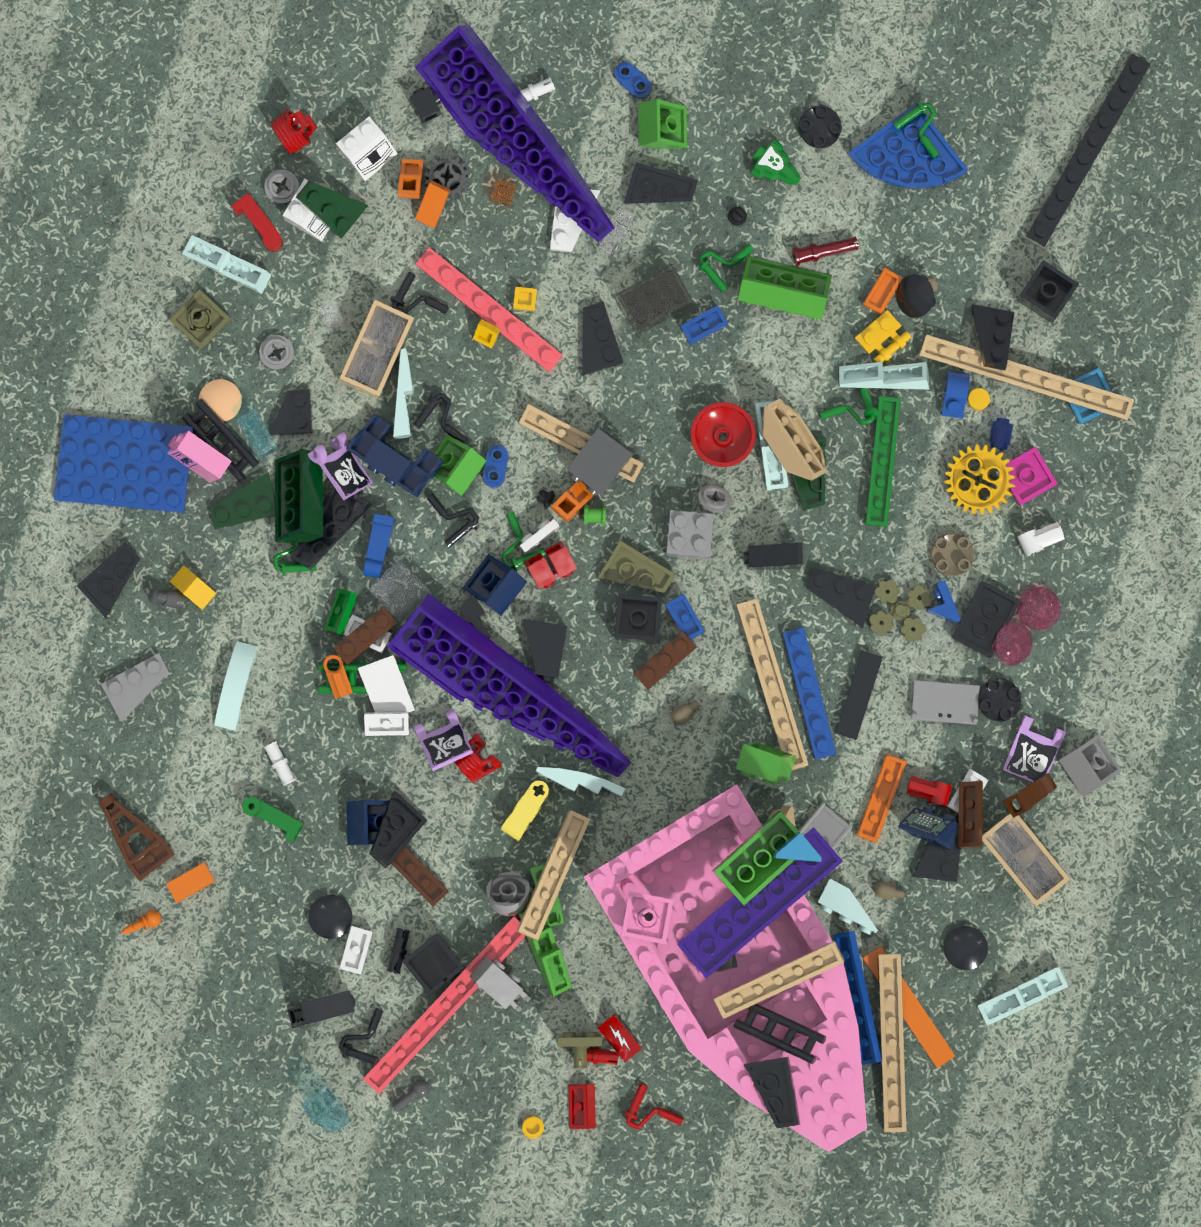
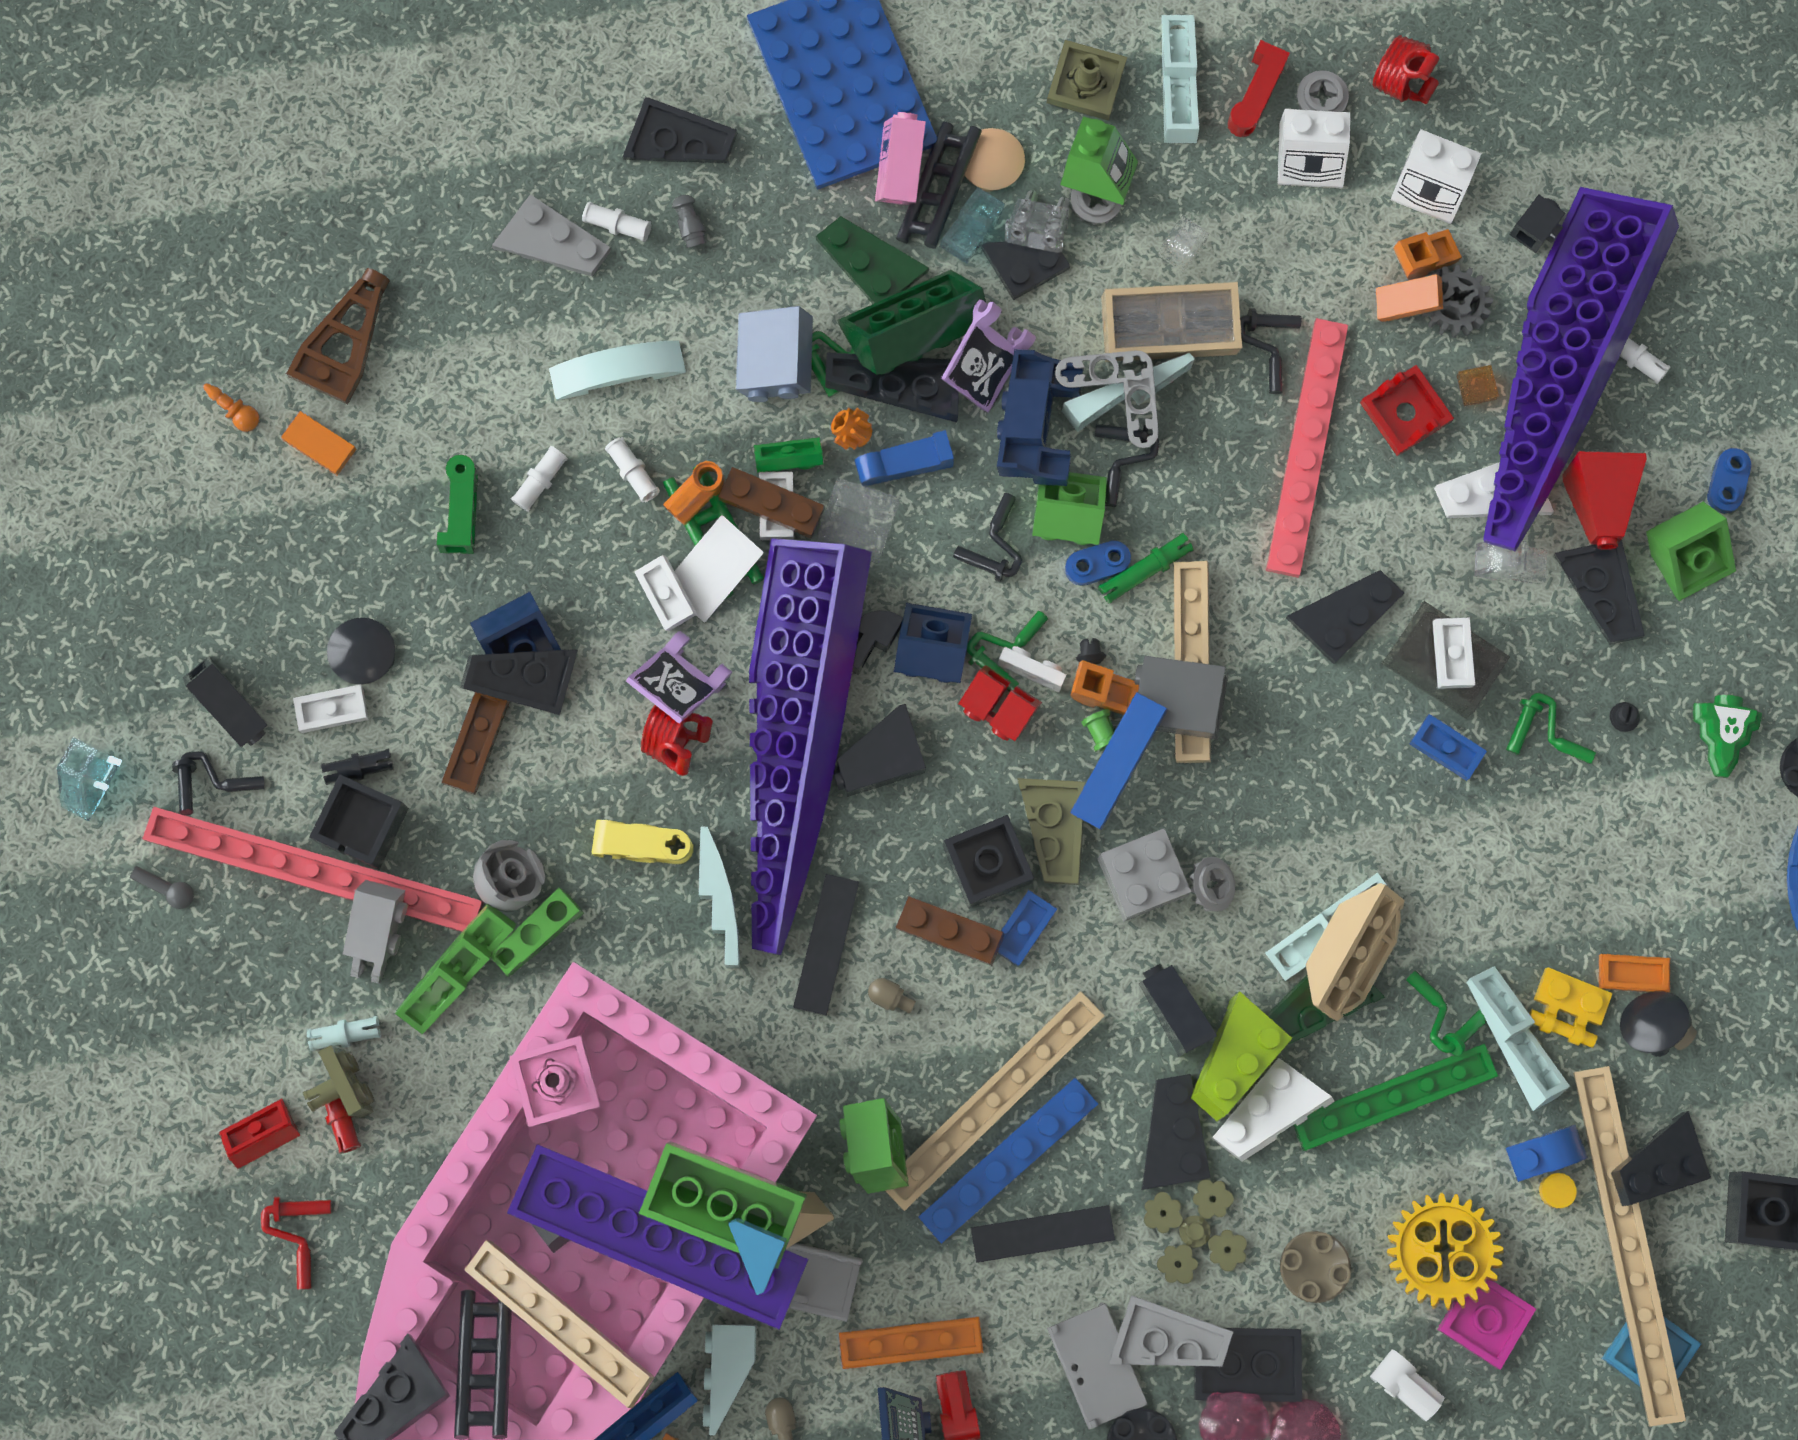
camera: 60 degrees right, 5 degrees down
(144, 641) = (616, 221): none -> white pin
(192, 587) = (721, 249): yellow slope -> none
(258, 339) = (1099, 162): none -> bright green slope
(276, 394) = (1038, 223): none -> clear piece
(276, 589) = (774, 353): none -> brick
(302, 706) = (632, 469): none -> white pin
(330, 207) = (1330, 167): dark green wing -> none
(344, 567) = (851, 428): none -> orange gear
(403, 391) = (1131, 384): none -> light grey beam
(486, 231) = (1415, 390): none -> red piece
(486, 334) = (1273, 458): yellow plate -> none
(513, 440) = (1145, 568): none -> green pin
(525, 299) = (1348, 486): yellow plate -> none
(532, 1127) = (197, 1078): yellow tile -> none
(549, 1031) = (343, 1033): none -> light aqua pin
(553, 875) = (563, 923): tan plate -> none
(606, 158) = (1604, 493): none -> red slope
(619, 515) = (1119, 761): none -> blue tile
(619, 1038) = (382, 1138): red slope -> none
(637, 734) = (826, 944): none -> black tile
(655, 295) = (1453, 653): none -> white plate
(725, 419) = (1326, 832): red dish -> none
(784, 287) = (1561, 832): bright green slope -> none
(815, 252) = (1635, 849): dark red pin -> none
(818, 536) = (1238, 1057): none -> lime wedge
(854, 532) = (1271, 1107): none -> white wing
(948, 609) = (1232, 1300): blue slope -> none
(949, 655) = (1167, 1337): none -> light grey wing
(1000, 433) = (1526, 1248): clear blue brick -> none

